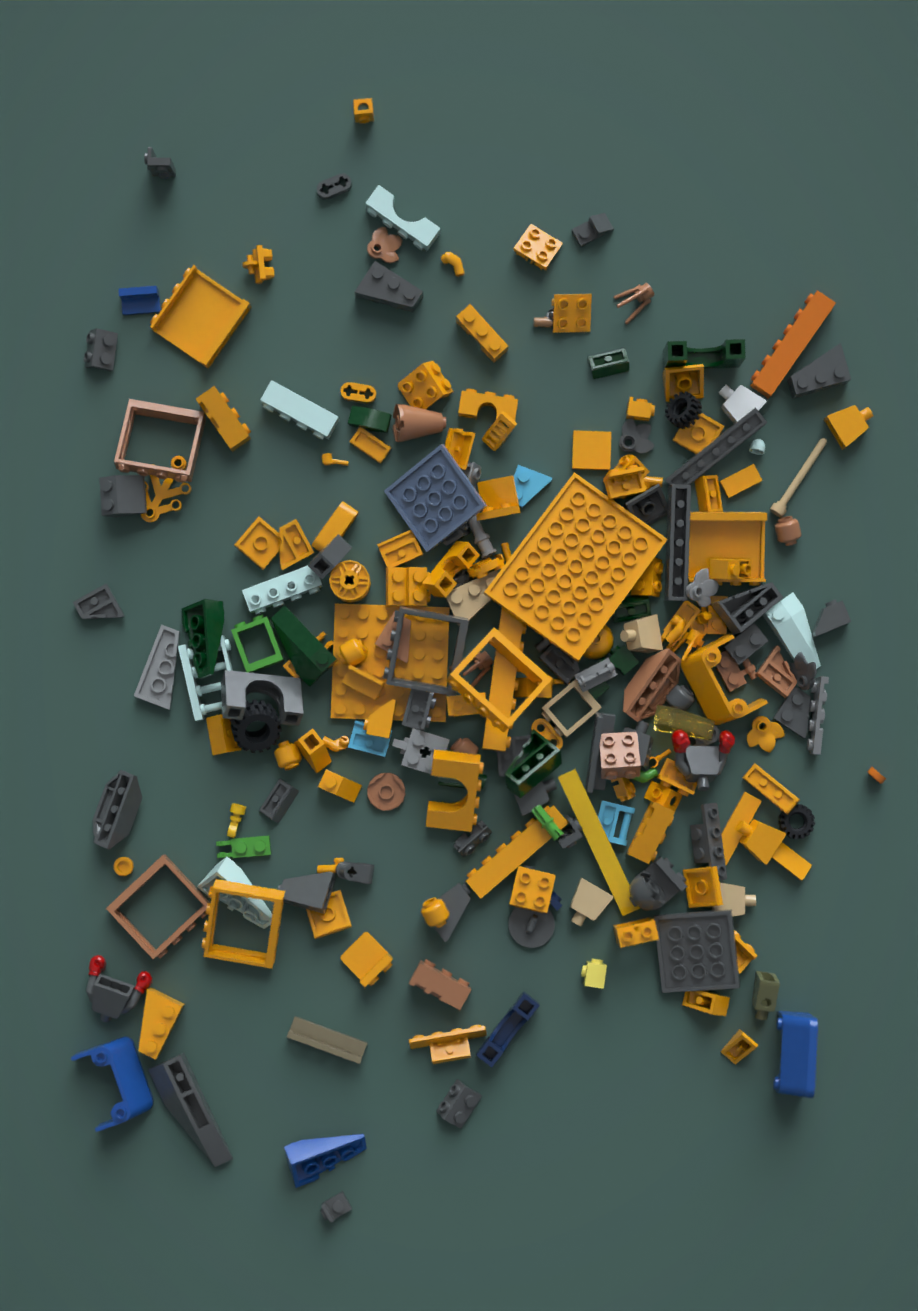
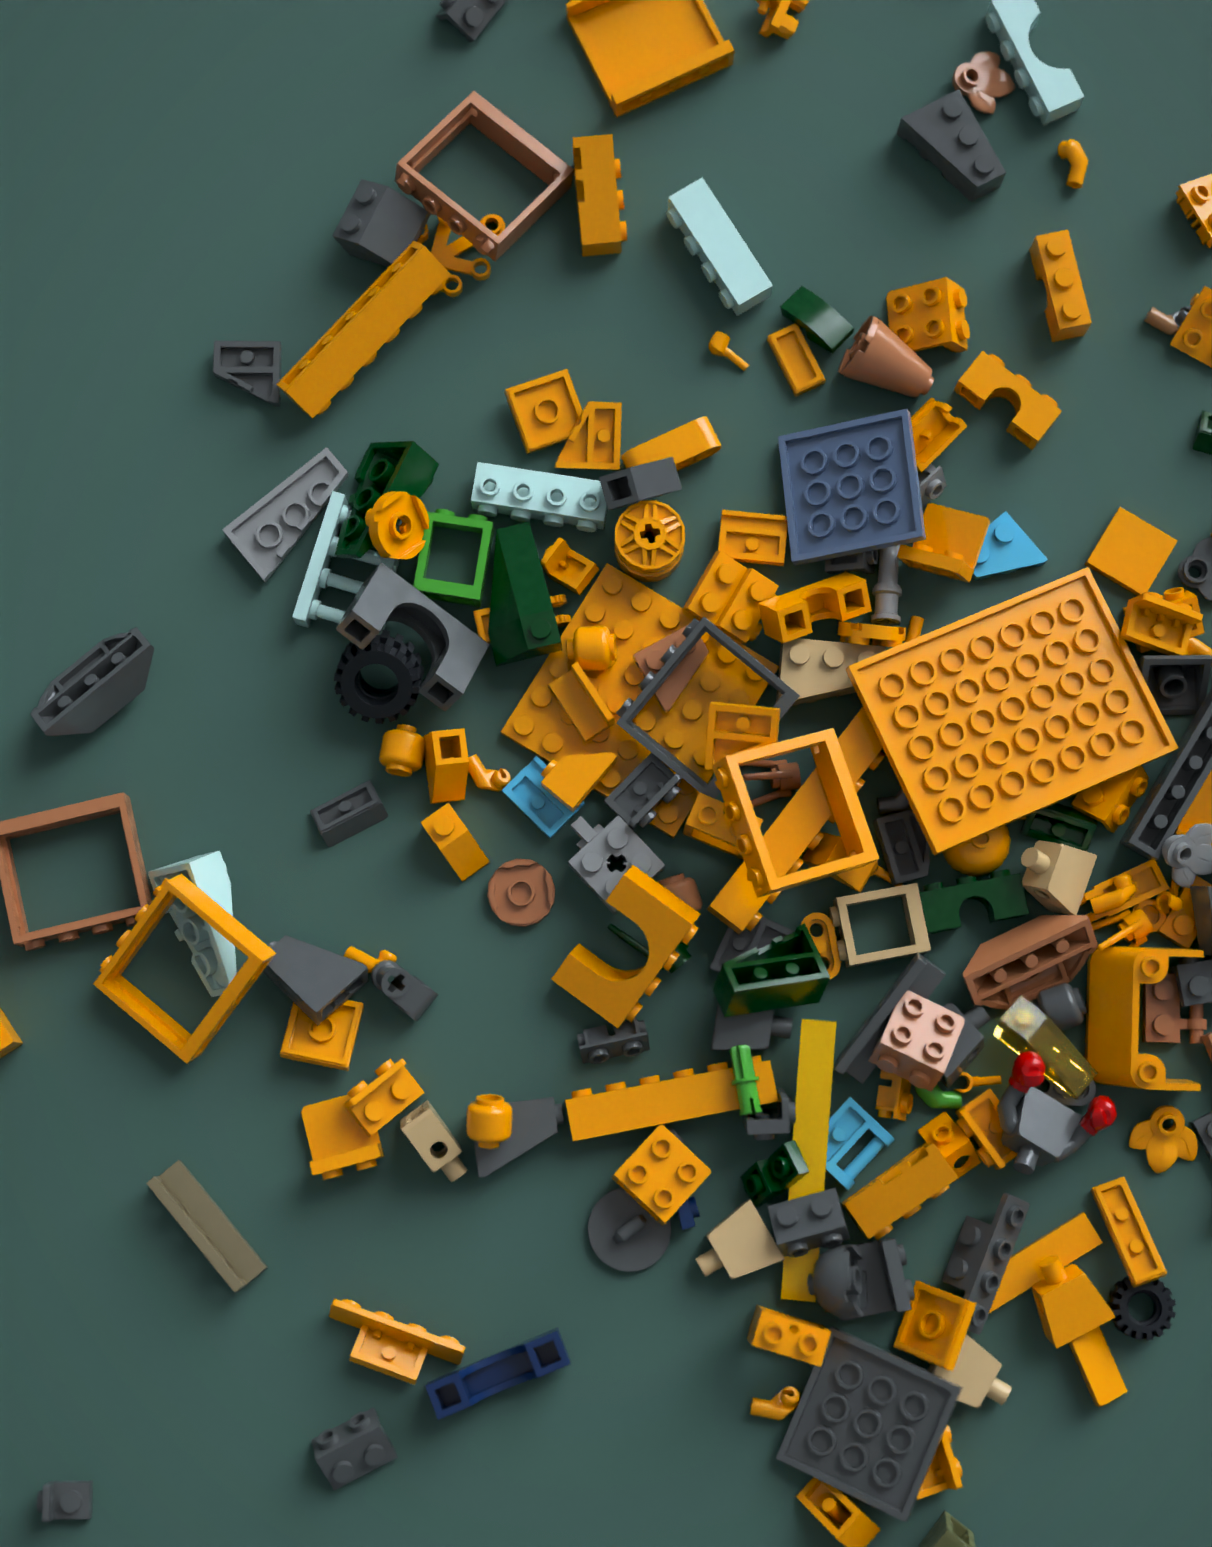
camera: 30 degrees right, 5 degrees down
(123, 866) = (55, 778): light orange tile -> none
(145, 554) = (364, 329): none -> light orange brick
(213, 646) = (382, 525): none -> light orange plate
(221, 735) = (319, 663): light orange panel -> none
(237, 810) = (277, 791): yellow piece -> none
(246, 847) = (258, 855): bright green hinge -> none
(314, 1156) = (80, 1399): blue wedge -> none
(317, 616) = (568, 566): none -> light orange bracket
(358, 388) = (817, 278): light orange beam -> none
(376, 930) = (383, 1097): none -> light orange bracket
(406, 933) = (424, 1129): none -> tan torso
(440, 984) = (433, 1240): nougat wedge -> none
(449, 655) = (739, 729): none -> light orange wing
(461, 578) = (823, 630): dark grey plate -> none
(498, 432) = (987, 448): light orange slope -> none
(586, 859) = (774, 1175): none -> dark green slope
(594, 973) = (685, 1364): light yellow brick -> none
(595, 675) = (950, 894): light grey hinge -> none
(615, 873) = (808, 1223): none -> dark grey bracket
(650, 967) = (778, 1407): none -> light orange arm

